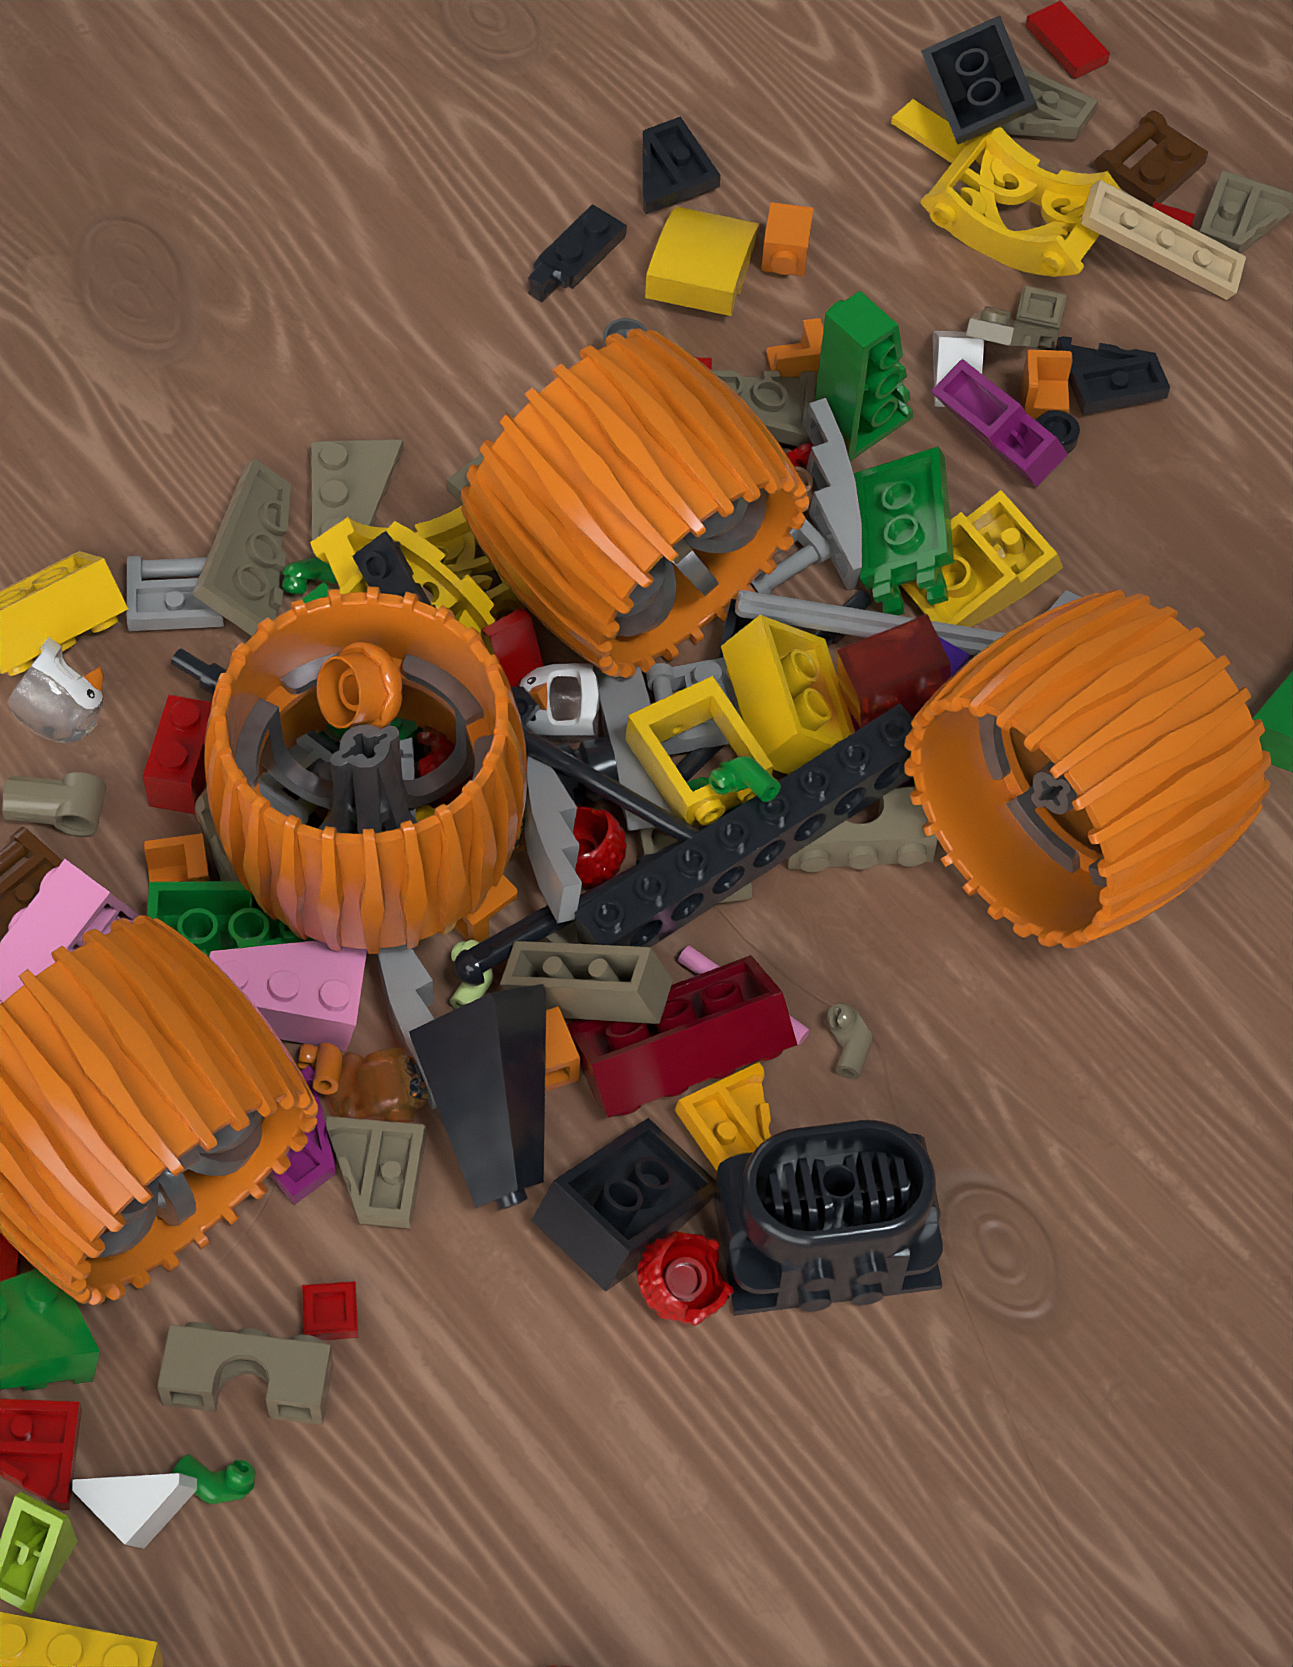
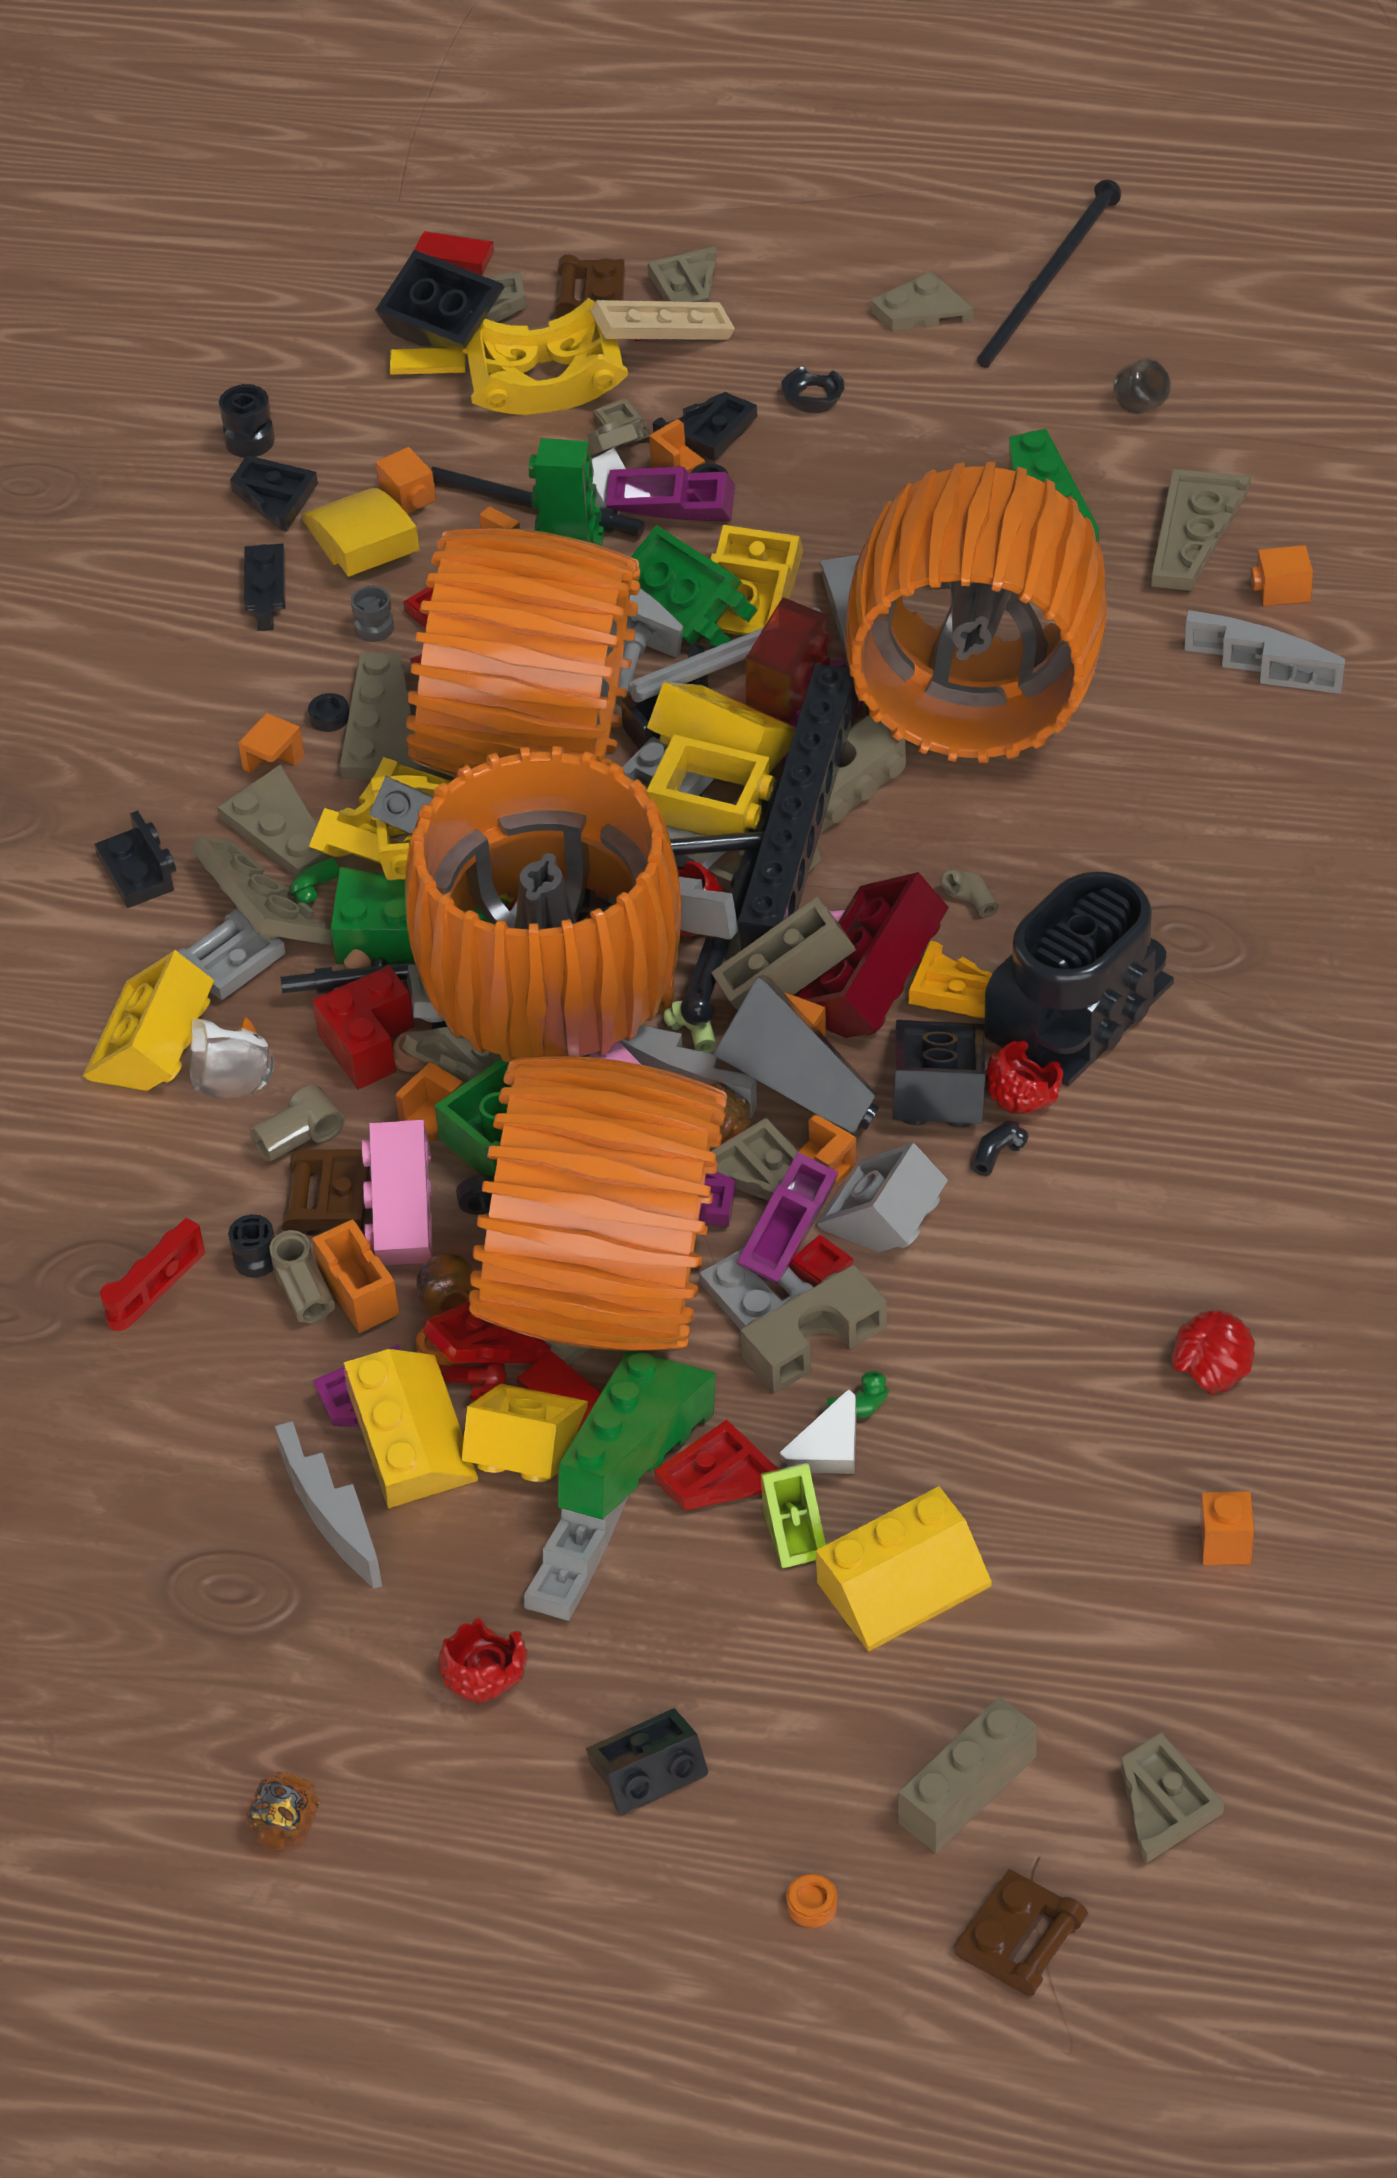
camera: 35 degrees left, 10 degrees down
(197, 445) = (137, 862): none -> black bracket
(237, 1280) = (743, 1292): none -> light grey plate
(326, 1247) = (788, 1218): none -> magenta slope
(360, 687) = (499, 846): orange piece -> none
(410, 409) = (271, 740): none -> orange panel
(440, 1297) = (885, 1199): none -> light grey slope
(441, 1207) = (830, 1146): none -> orange panel
(490, 413) = (328, 712): none -> black tile
(600, 1318) = (993, 1142): none -> black arm
(712, 82) = (246, 420): none -> black wheel
(742, 774) = (764, 765): green arm -> none
(922, 400) = (609, 520): none -> black bar
(1239, 389) = (800, 378): none -> black piece

